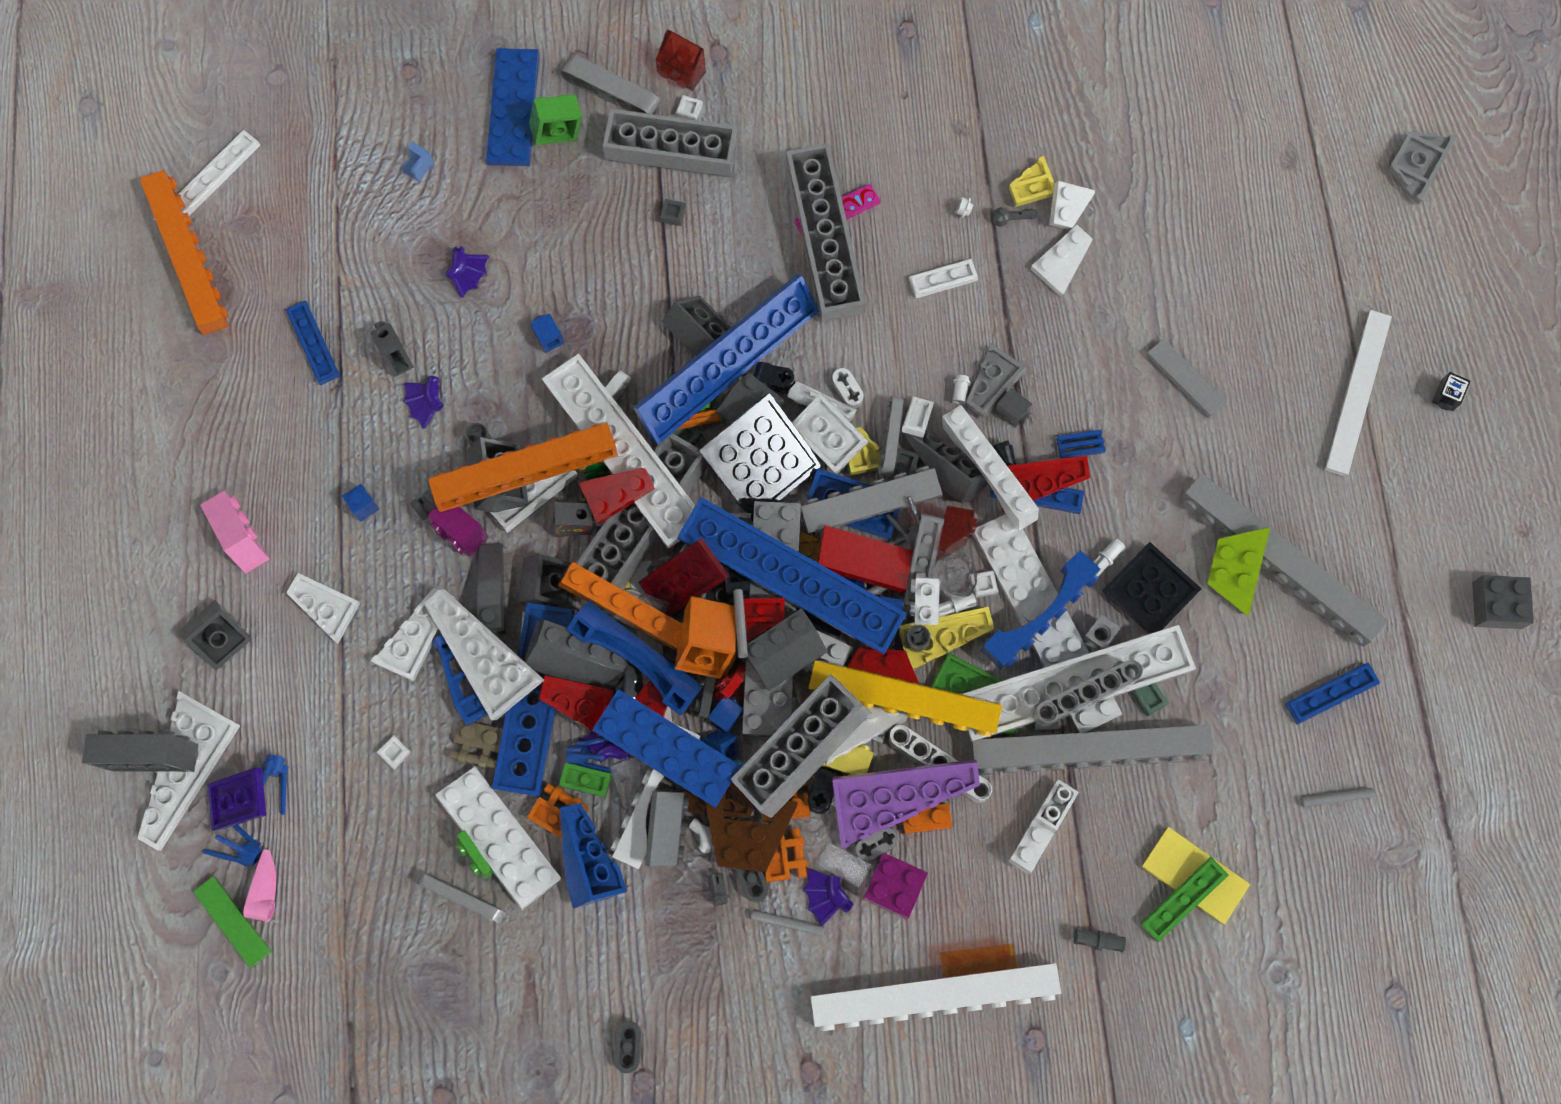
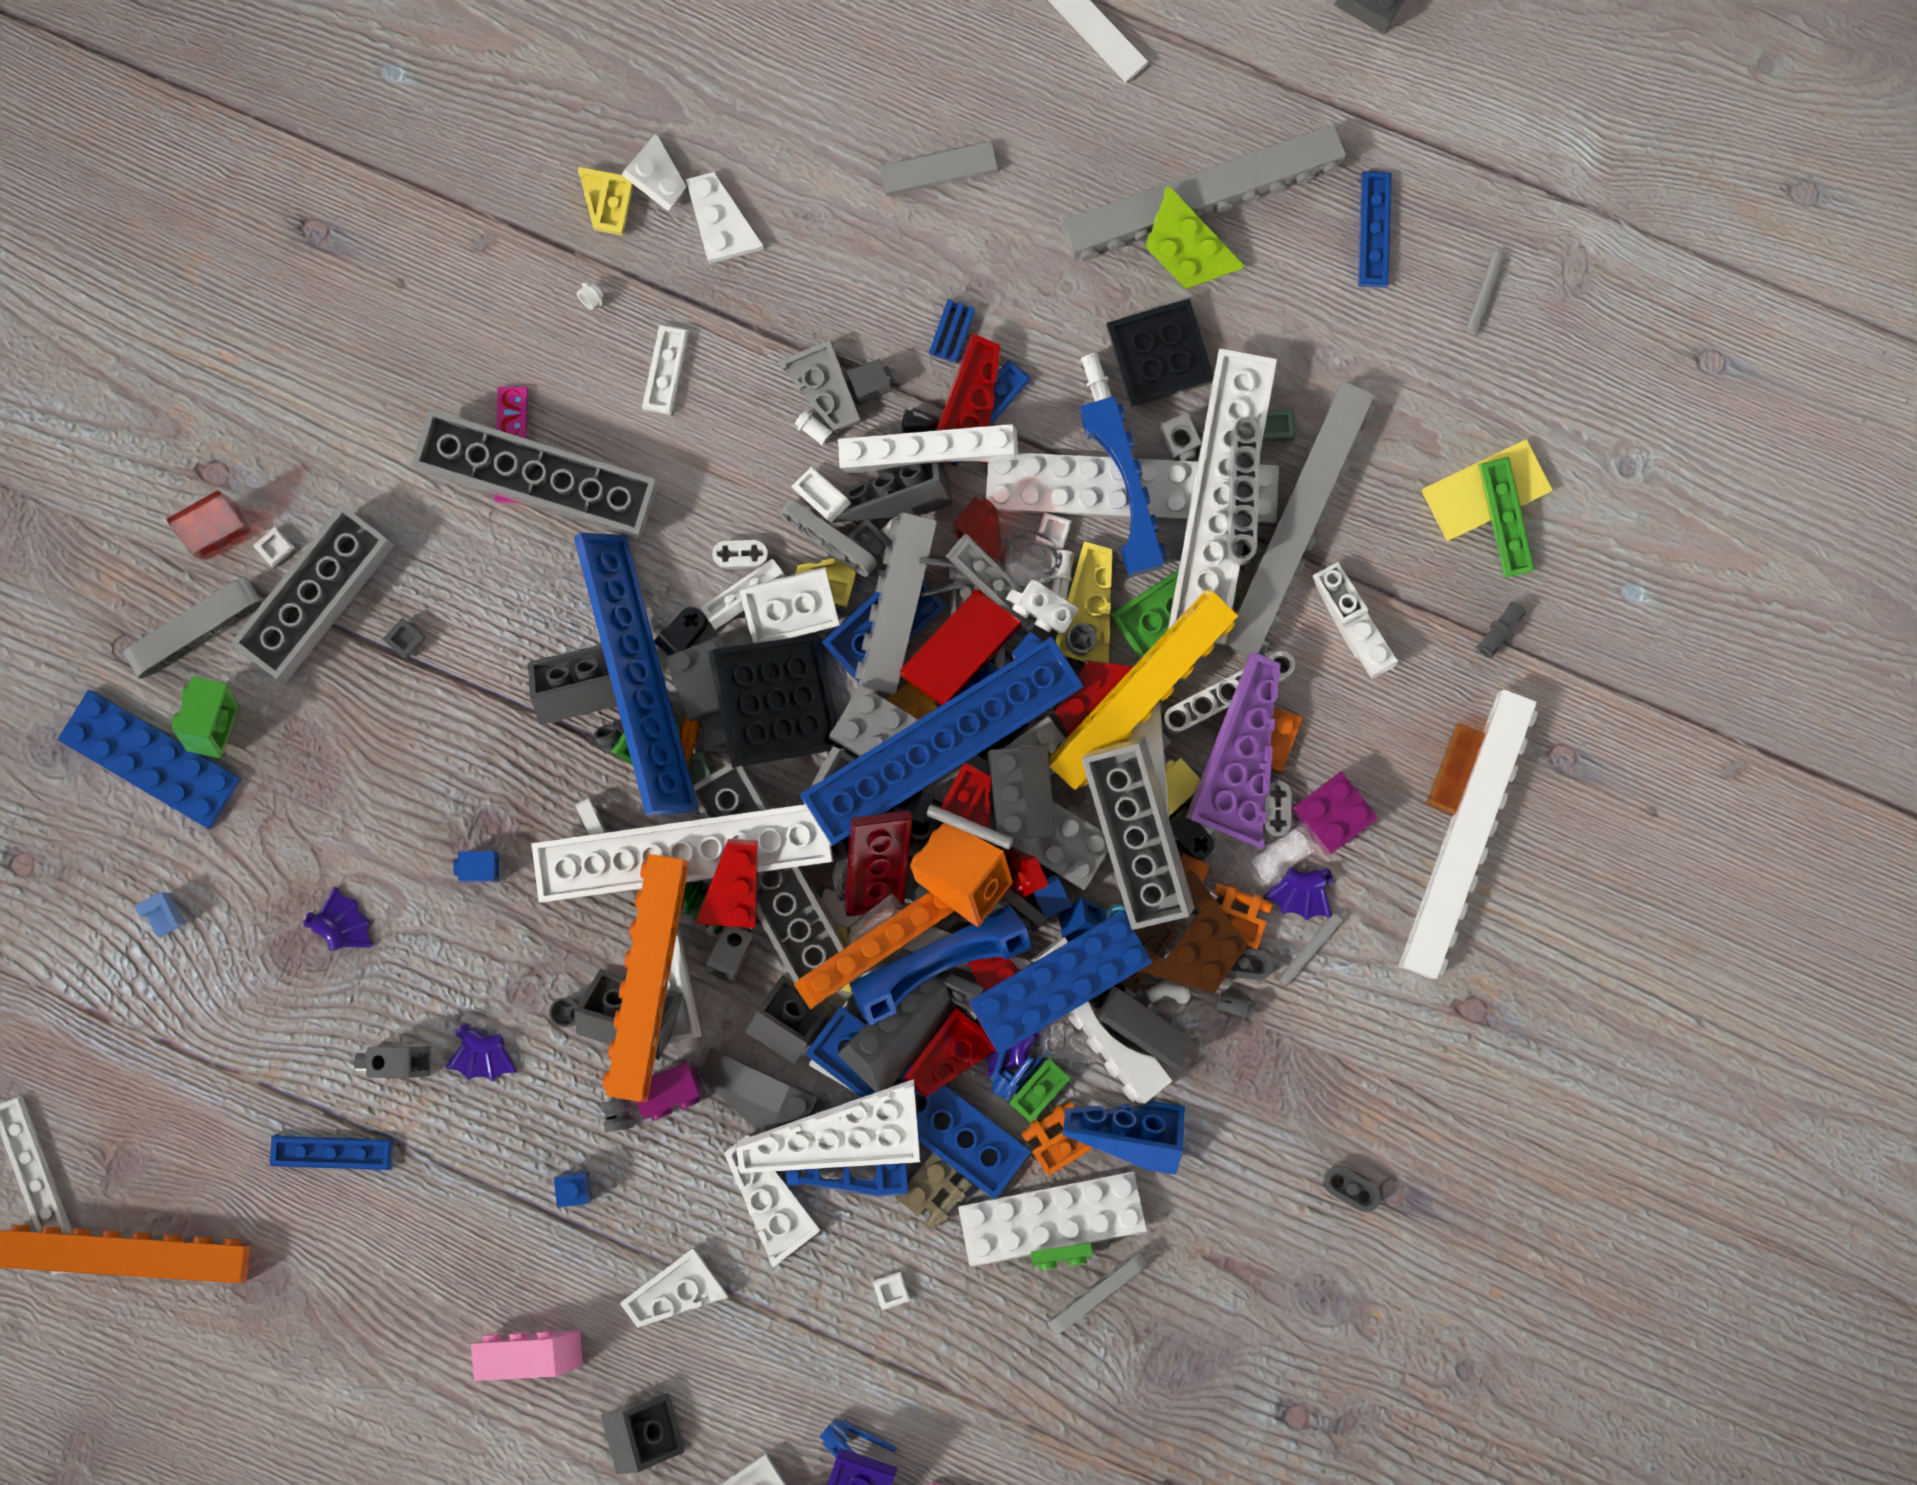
camera: 65 degrees left, 10 degrees up
(674, 366) = (607, 737): none -> dark grey plate
(1002, 215) = (625, 257): dark grey piece -> none

